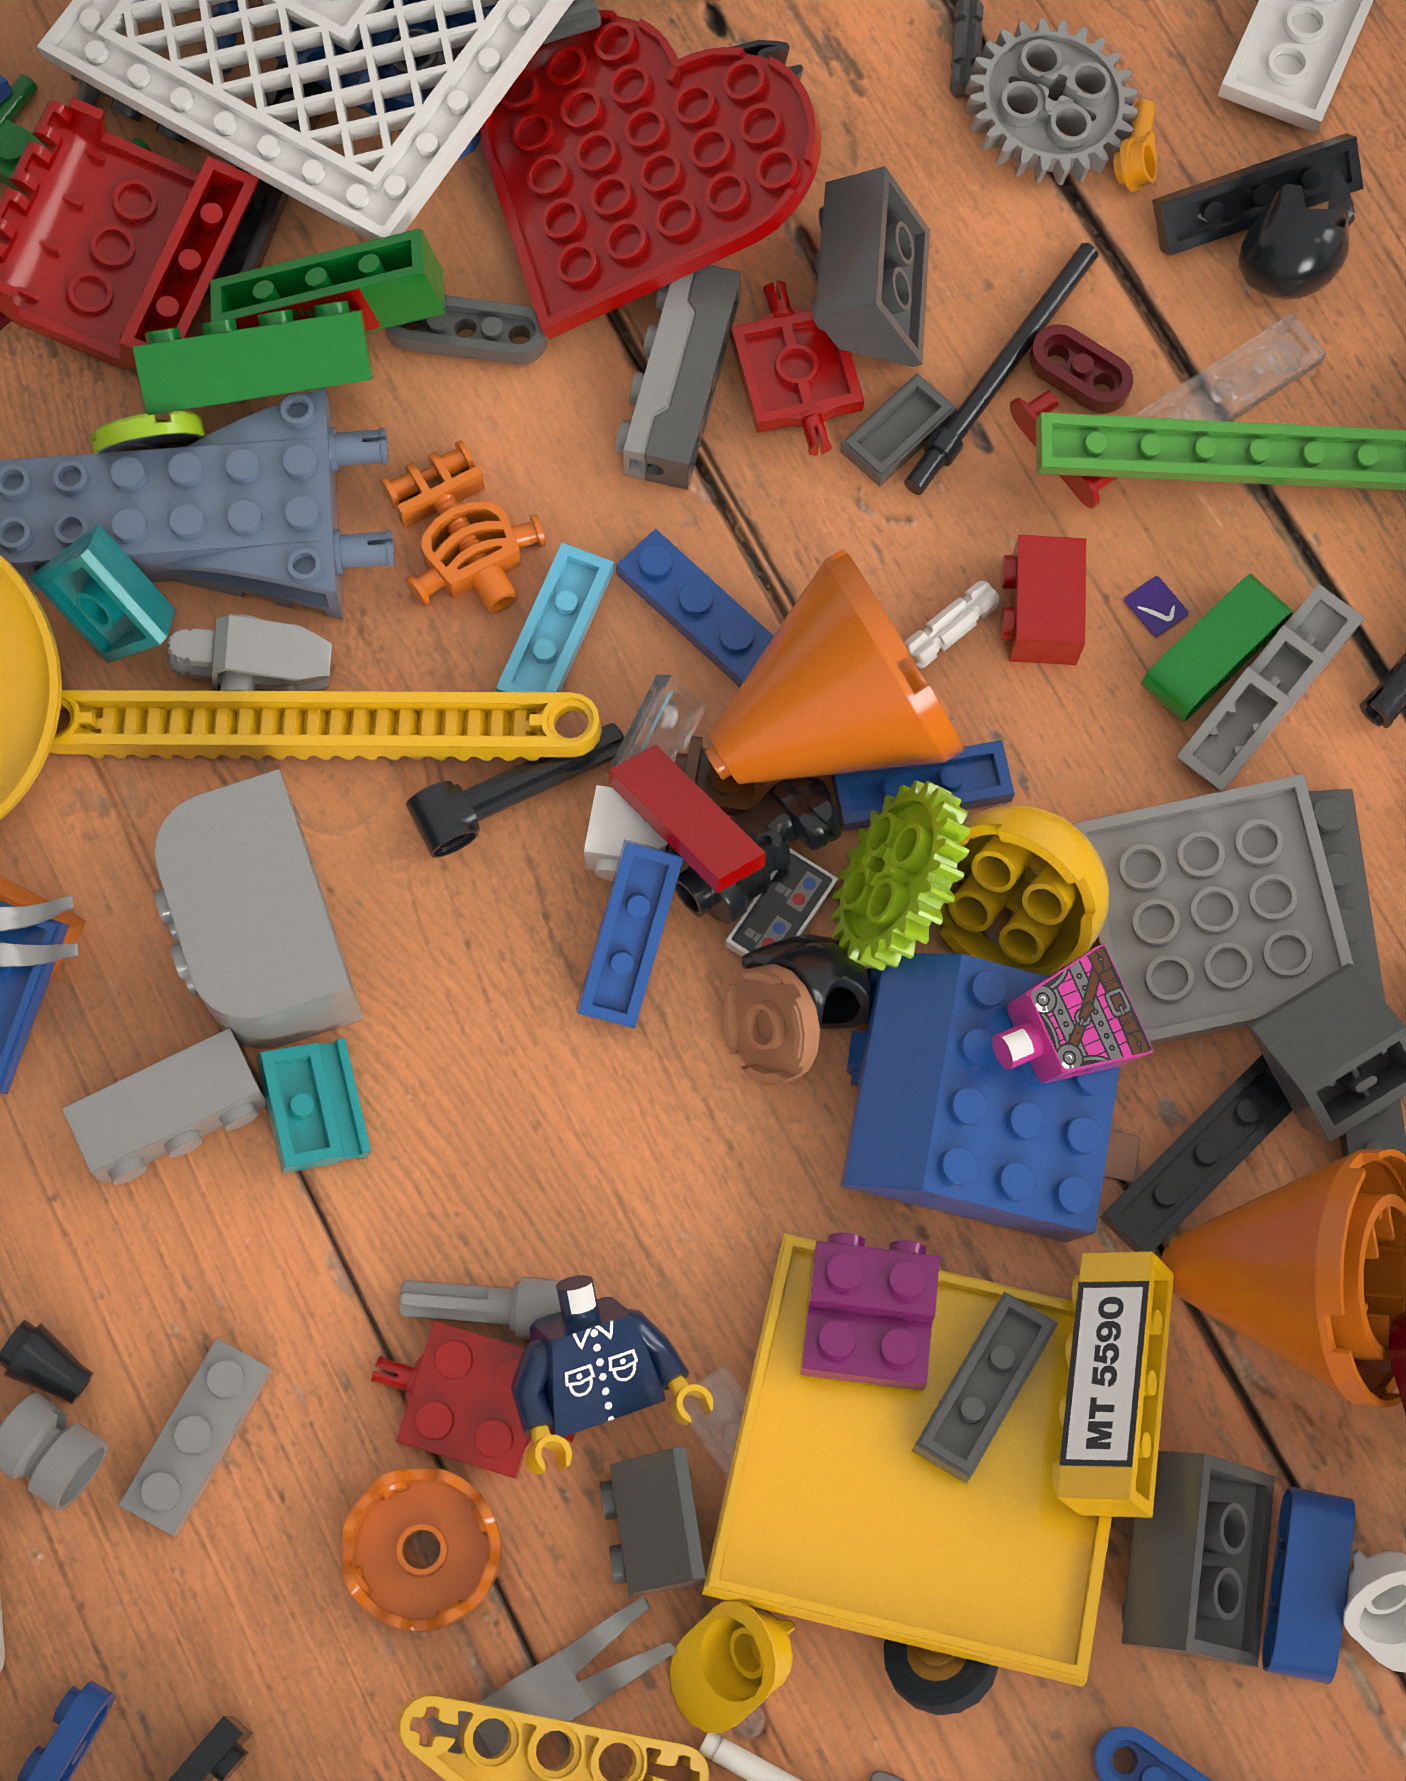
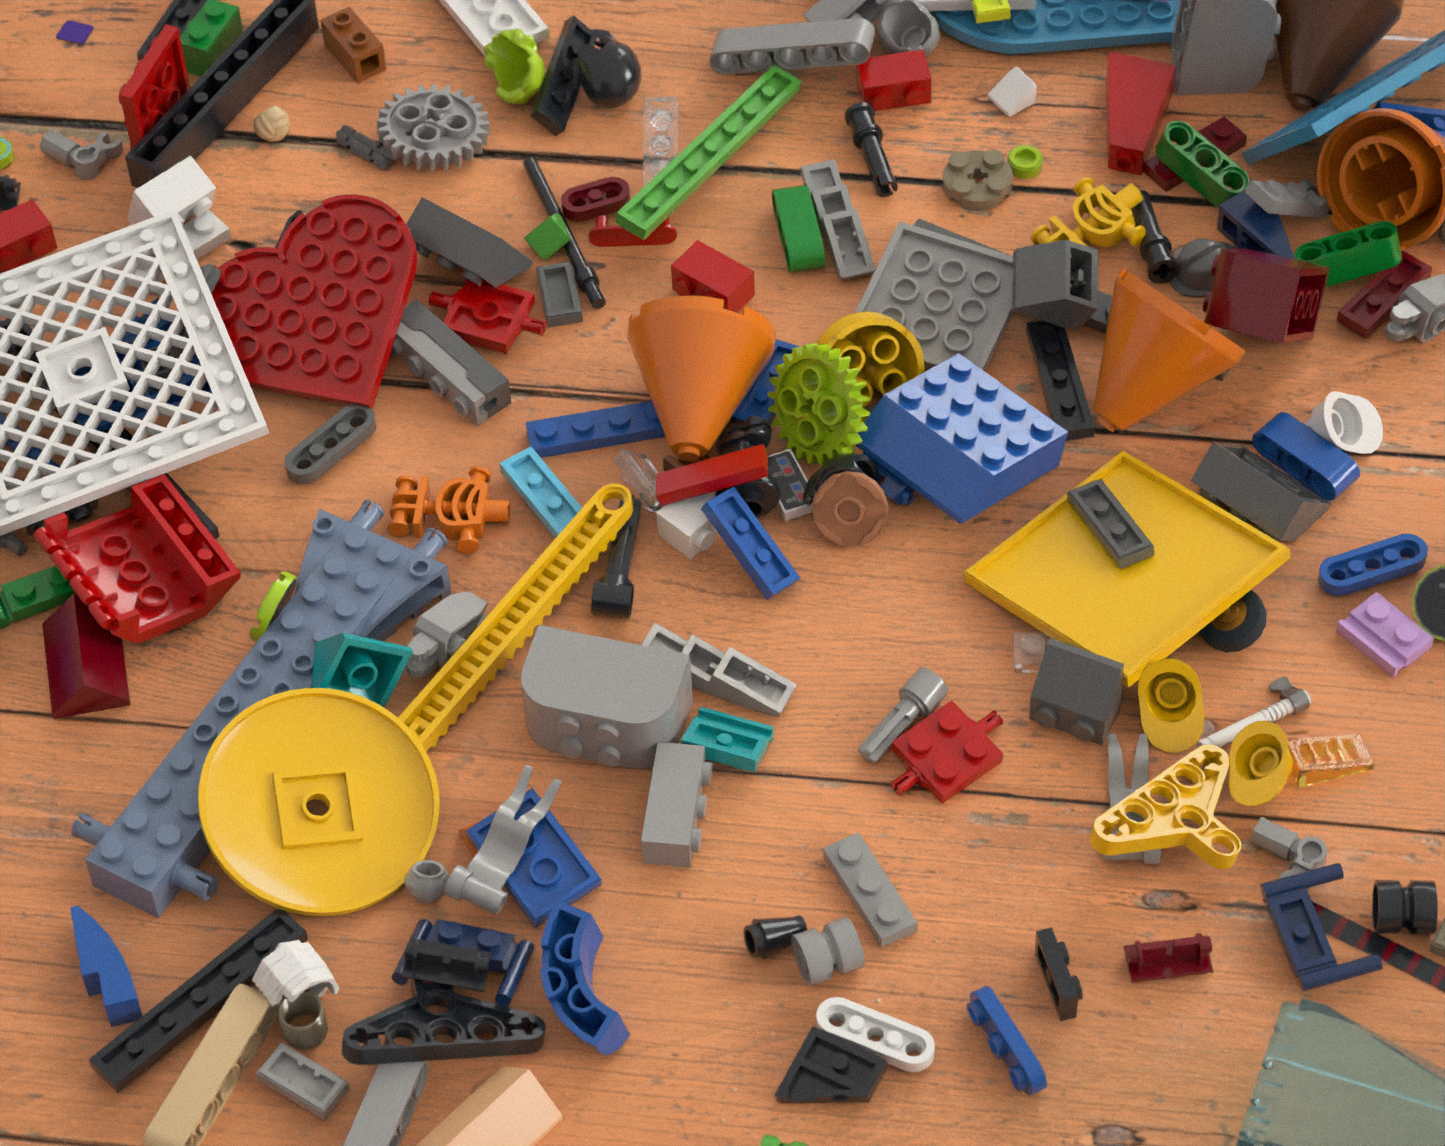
camera: 50 degrees left, 20 degrees down
(253, 361) = (279, 527): green brick -> none
(376, 1538) = (1011, 787): orange plate -> none
(385, 277) = (266, 480): green brick -> none
(414, 1021) = (727, 674): none -> light grey slope
(593, 1368) = (976, 673): dark blue torso -> none
(870, 1312) = (1034, 548): magenta plate -> none
(974, 354) = (548, 236): none -> bright green slope
(1073, 1022) = (958, 363): torso -> none
(1114, 1385) = (1151, 461): brick -> none
(1137, 156) = (499, 112): light orange plate -> none
(1156, 606) = (751, 245): dark purple sticker -> none
(1221, 129) = (515, 65): none -> lime hair

